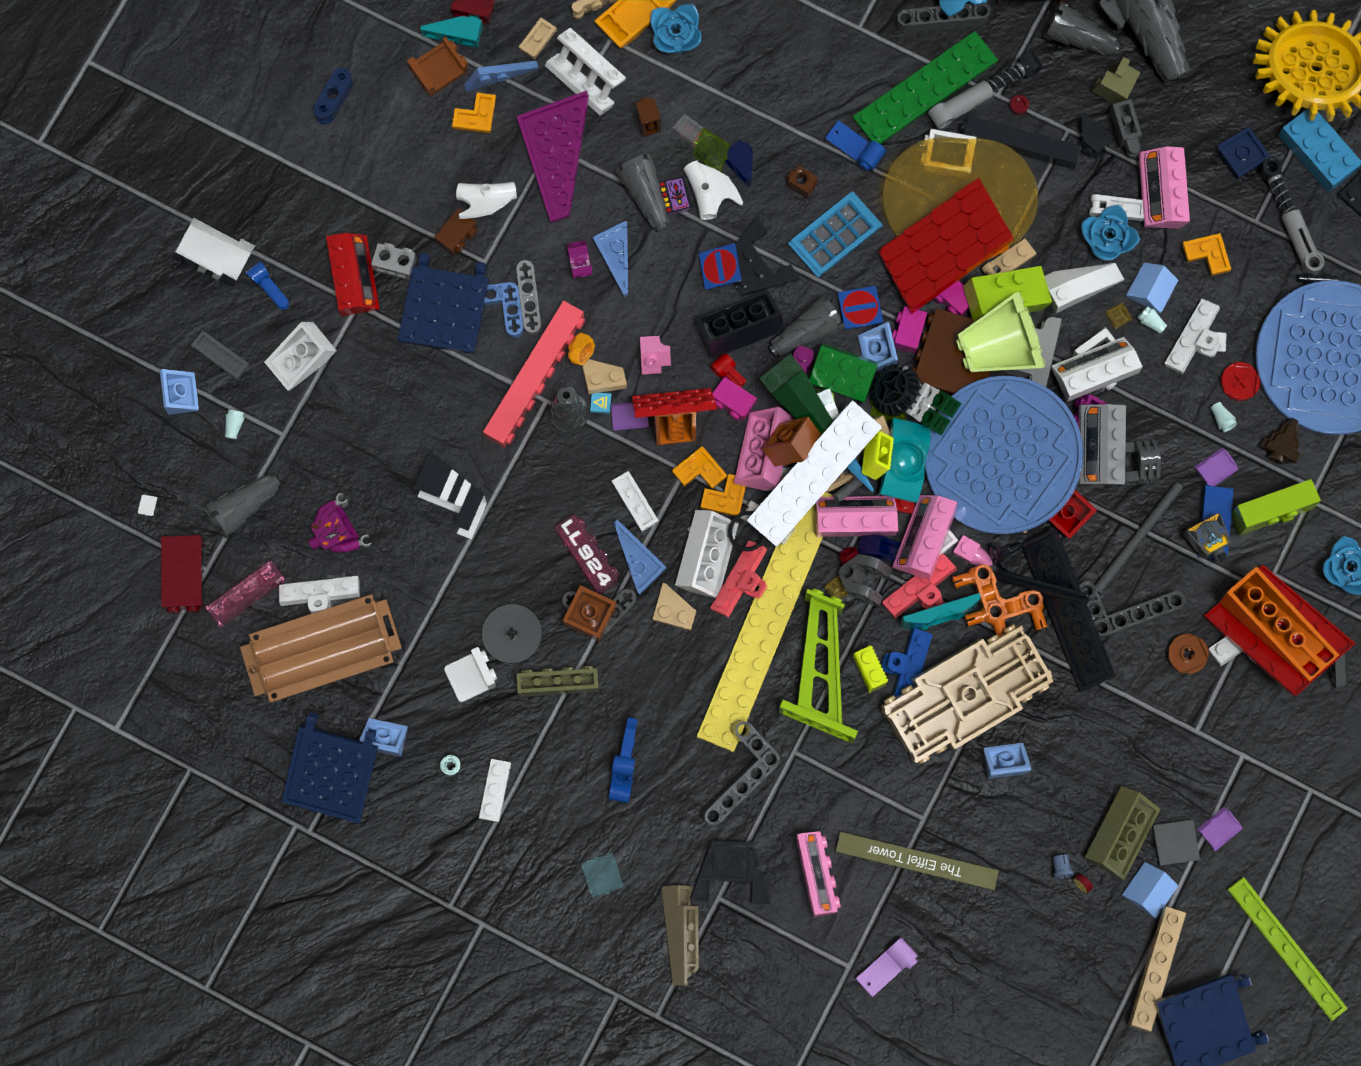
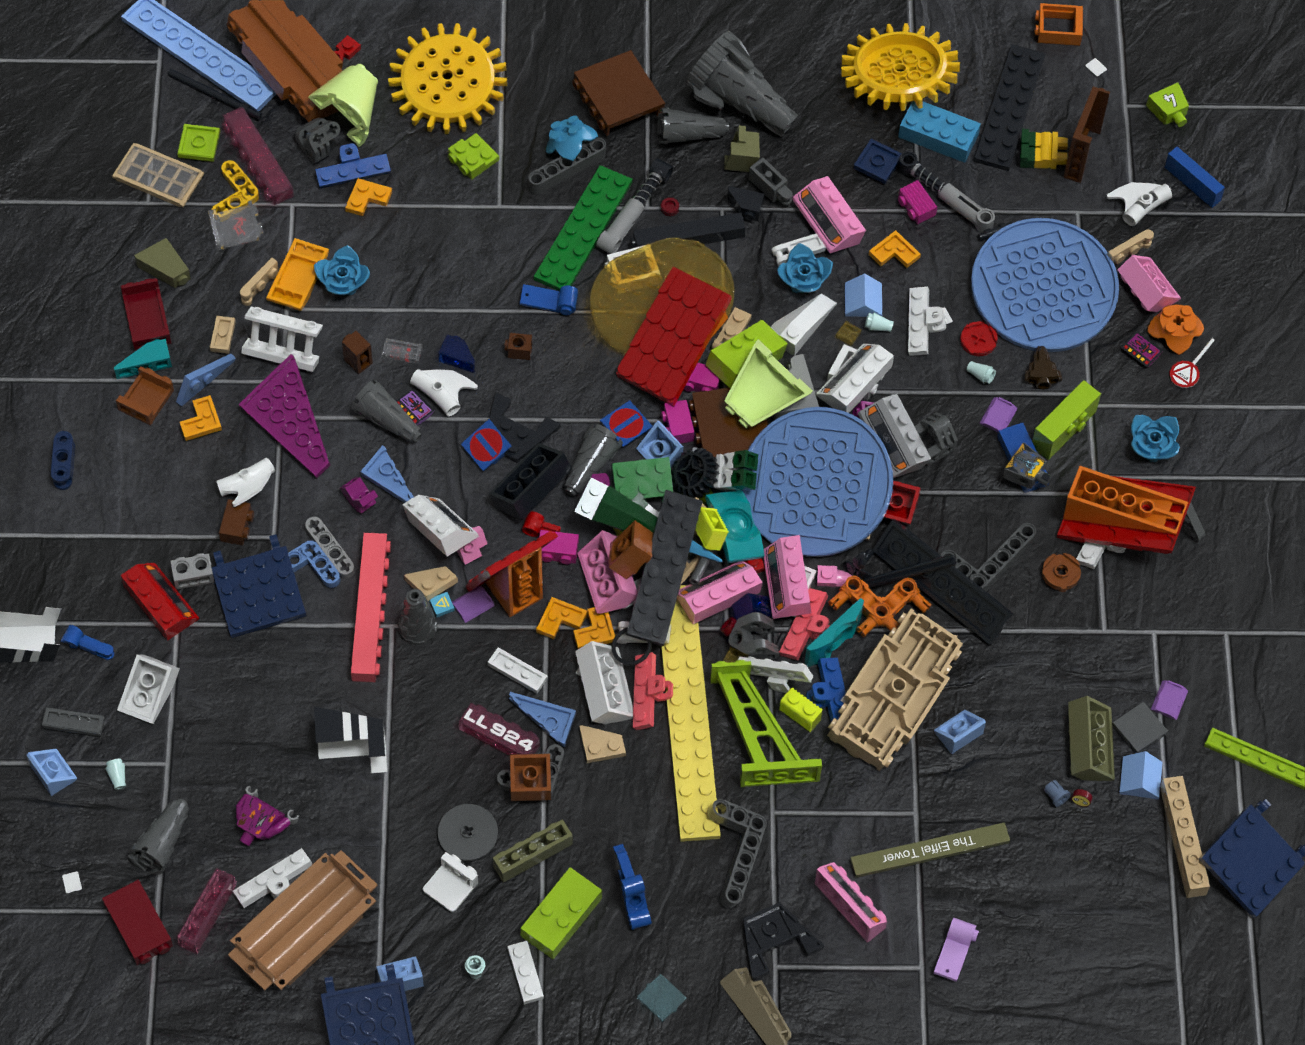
camera: 30 degrees left, 15 degrees down
(553, 753) = (561, 913): none -> lime brick
(581, 349) = (400, 565): light orange rock -> none
(636, 325) = (439, 523): none -> white slope
(711, 149) = (427, 354): clear neon green piece -> none
(835, 234) = (571, 376): dark azure piece -> none
(867, 625) = (779, 672): none -> white plate
(1138, 537) = (966, 497): dark grey piece -> none
(1257, 214) = (917, 202): none -> dark pink brick

